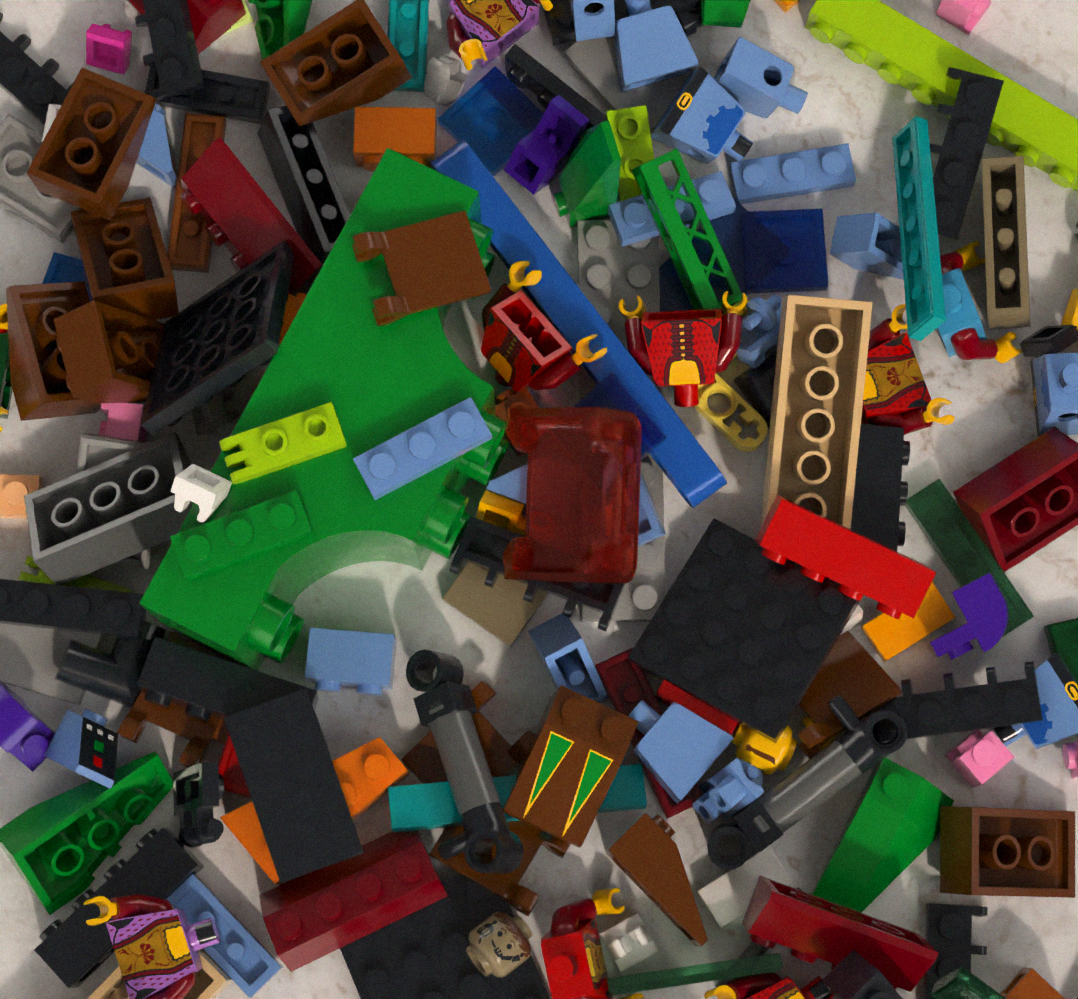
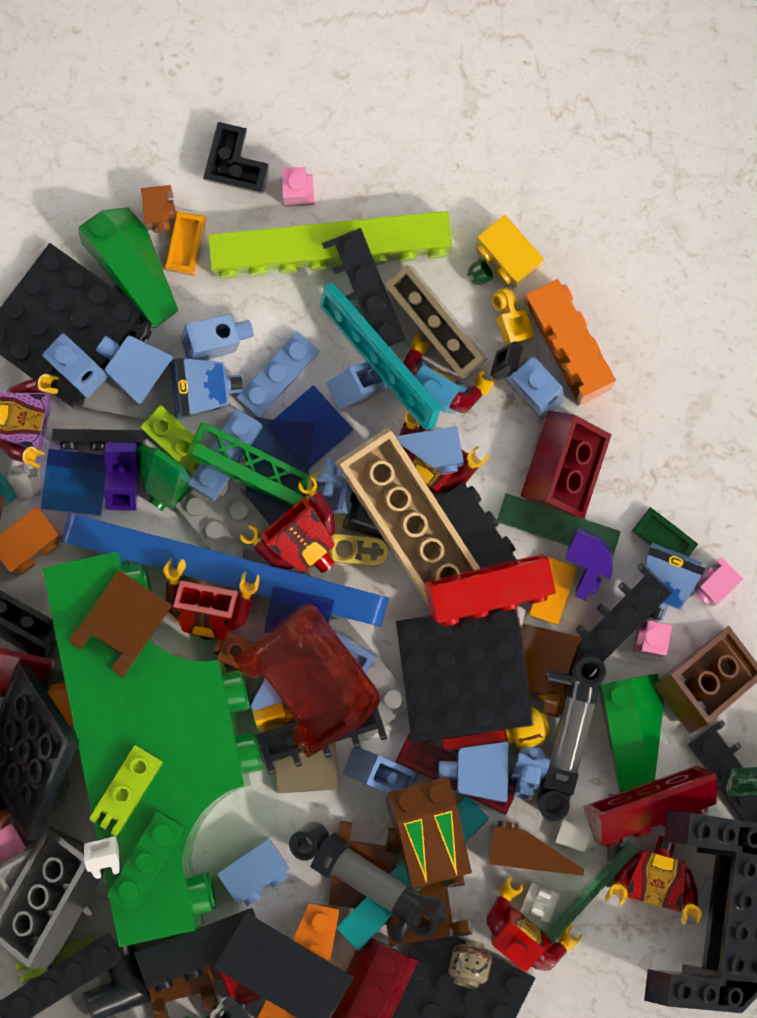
camera: 40 degrees left, 5 degrees up
(422, 448) = (208, 729): medium blue plate -> none
(901, 366) = (435, 449): none -> medium blue slope

